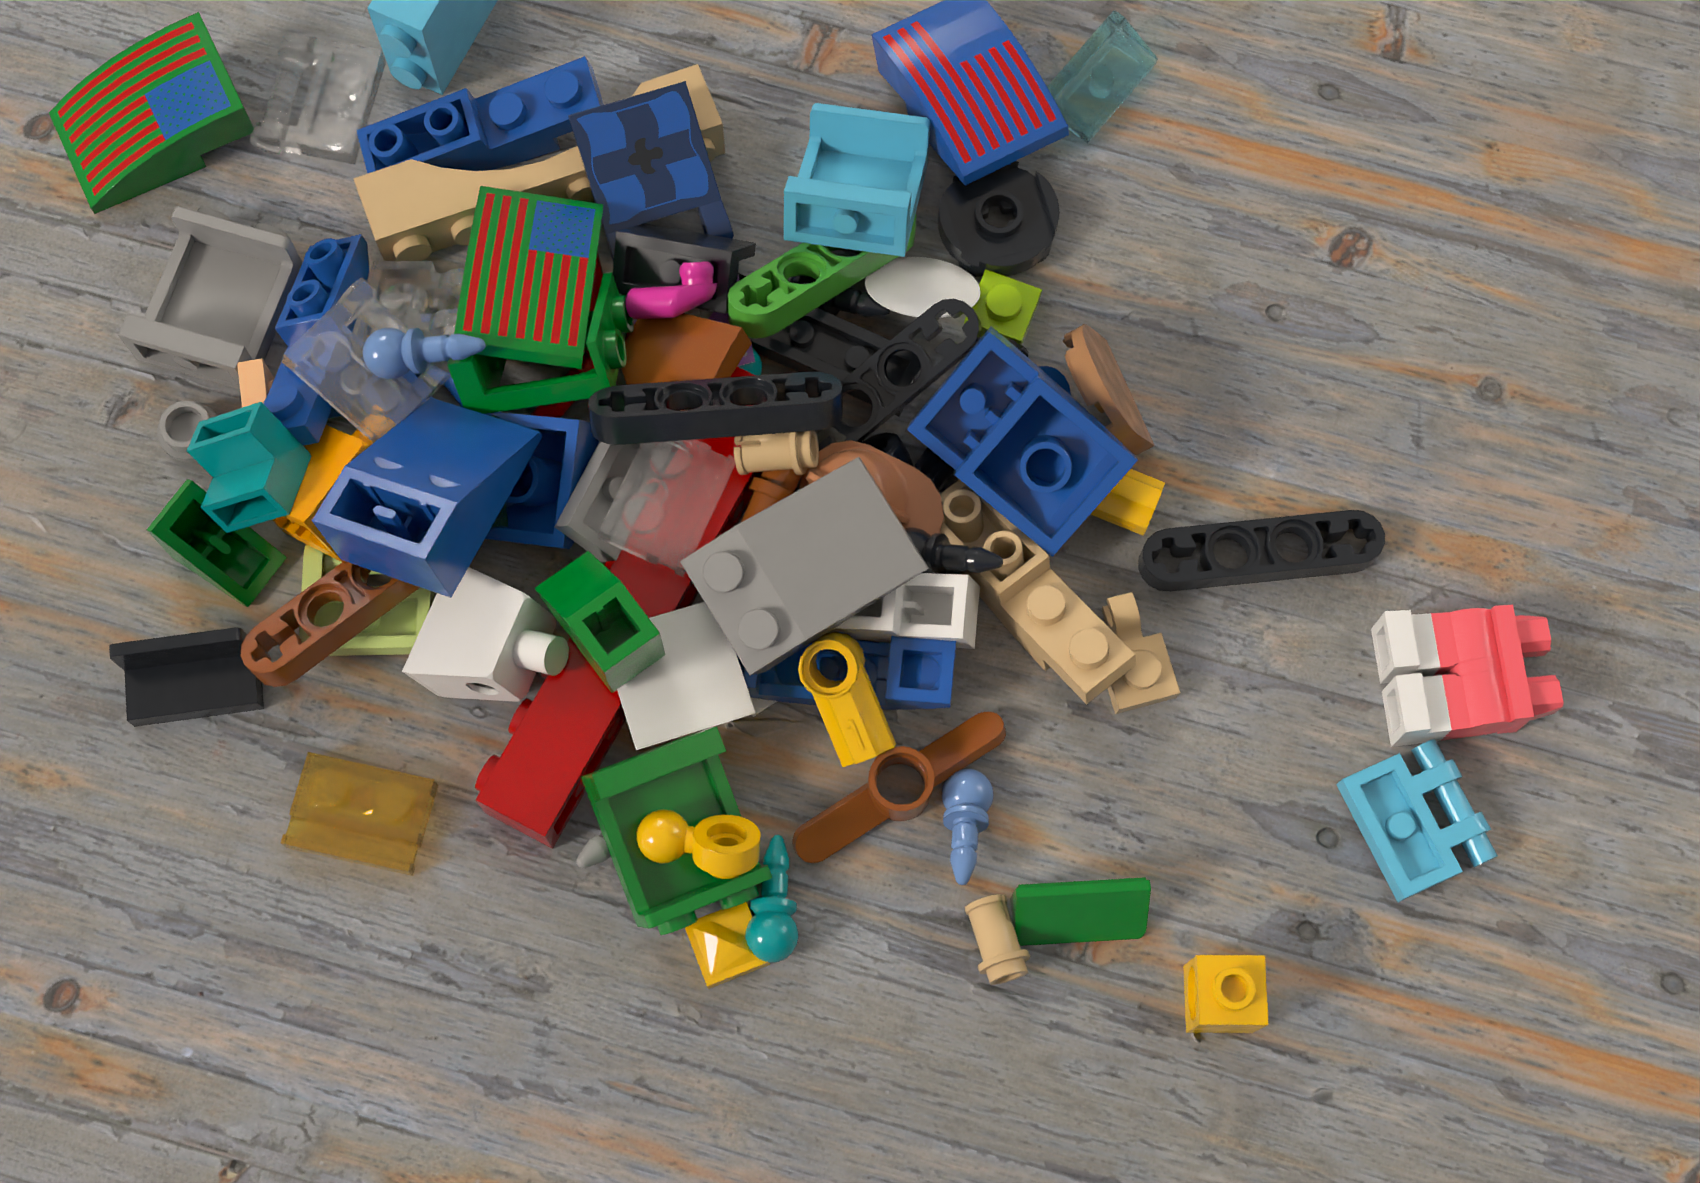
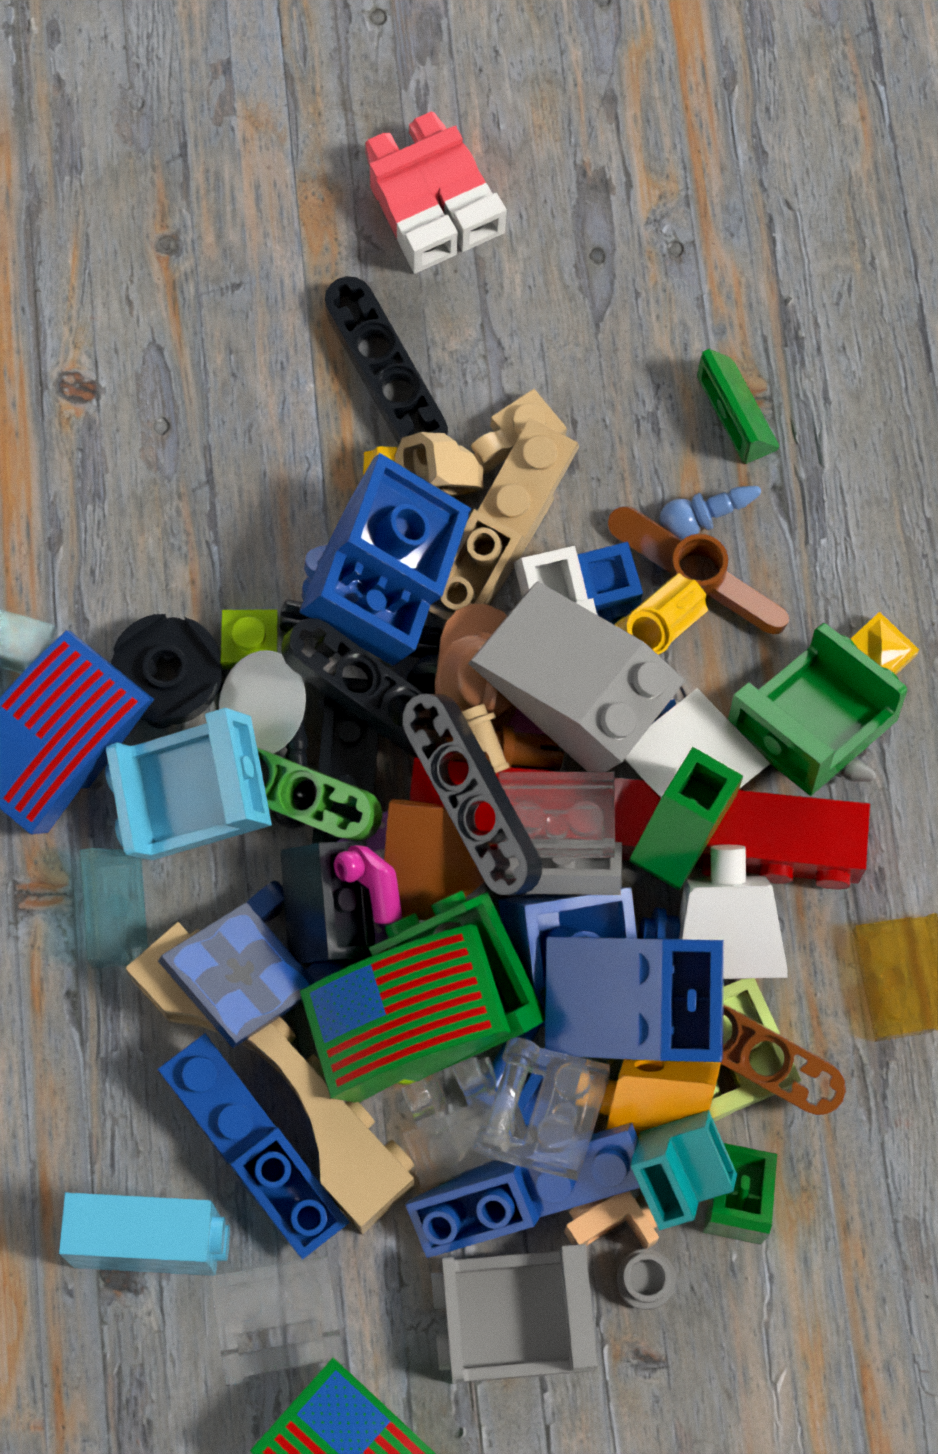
camera: 110 degrees left, 0 degrees up
(186, 677) = (862, 1165): black panel -> none
(393, 353) = (534, 1082): medium blue bar -> none
(513, 570) = (660, 925): none -> blue plate
(718, 844) = (828, 710): yellow plate -> none
(771, 89) = (113, 907): none -> clear light blue slope
(772, 931) = (855, 618): teal bar -> none
(943, 556) = (506, 582): black bar -> none
(997, 940) = (787, 455): tan pin -> none
(1105, 387) = (301, 521): medium nougat tile -> none
(1116, 547) = (441, 463): none -> tan rock
(1225, 994) = (758, 280): yellow brick -> none
(1401, 827) = (572, 202): medium azure plate -> none

